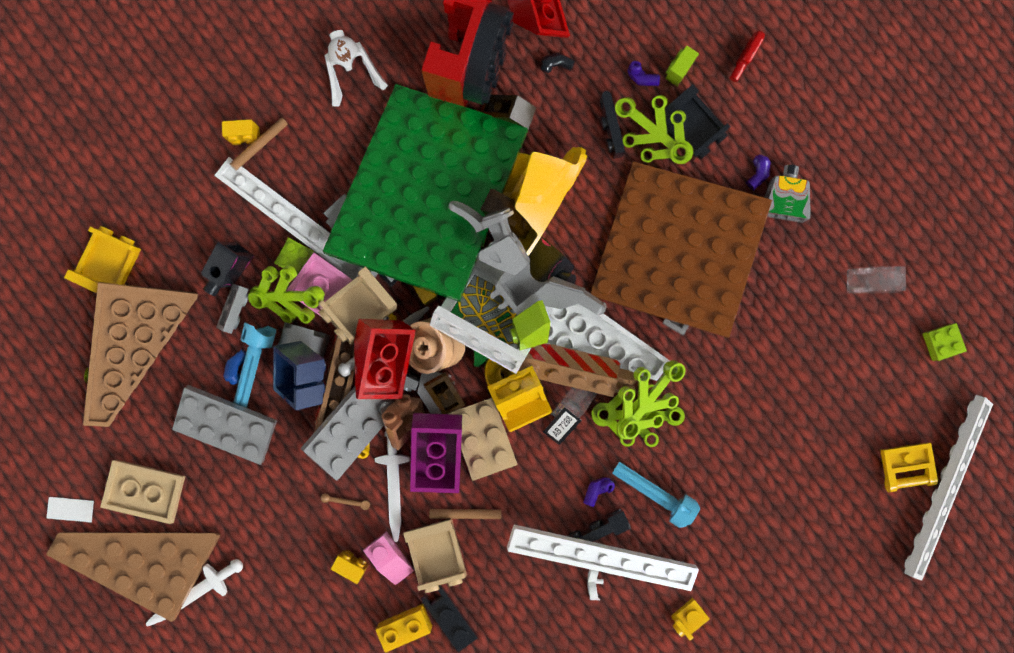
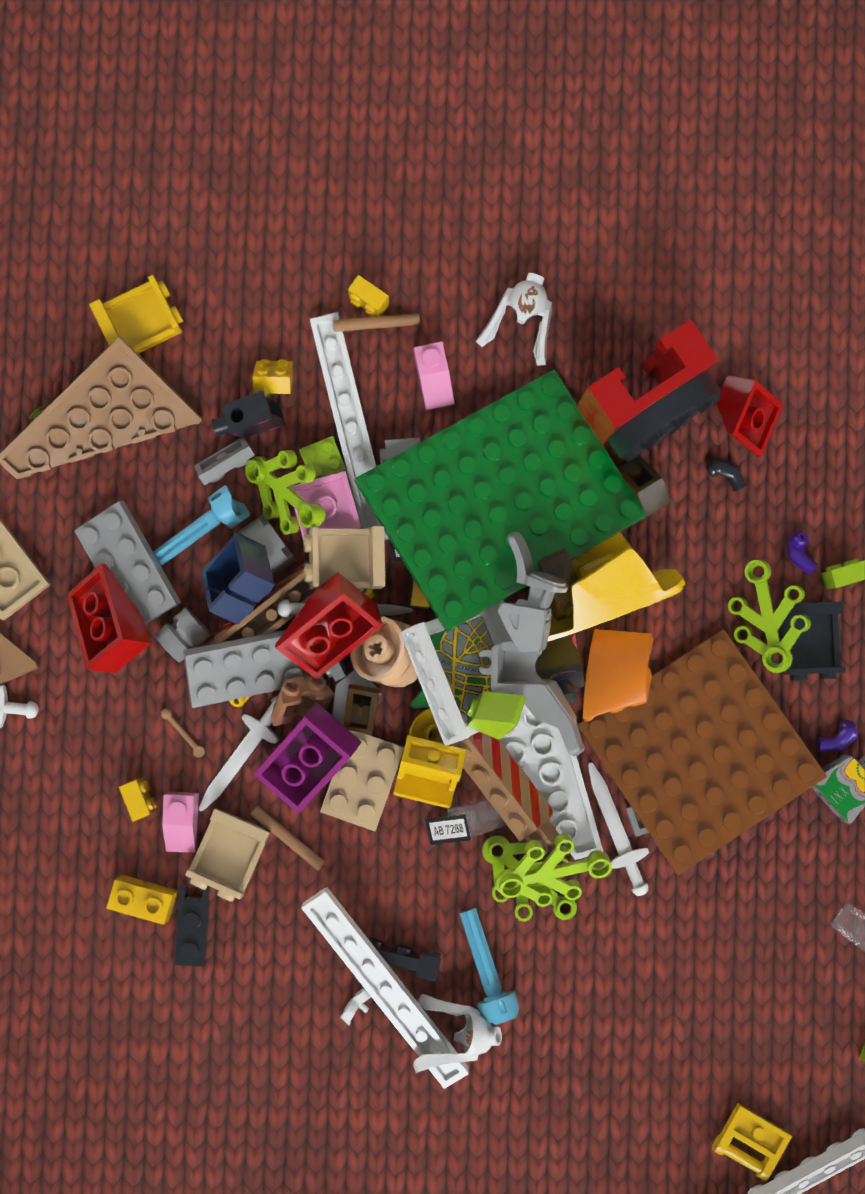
camera: 30 degrees right, 0 degrees up
(220, 229) = (273, 376): none -> yellow piece
(231, 368) = (178, 516): blue arm -> none
(239, 470) = (106, 622): none -> red slope
(294, 437) = (182, 634): none -> light grey wheel
(322, 148) = (433, 375): none -> bright pink slope
(588, 241) = (617, 672): none -> orange slope
(596, 488) = (435, 916): dark purple arm -> none
(610, 124) = (731, 574): black hinge -> none
(684, 543) = (475, 1037): none -> white piece
(687, 351) = (627, 856): none -> white sword
(689, 619) = (420, 1114): yellow bracket -> none

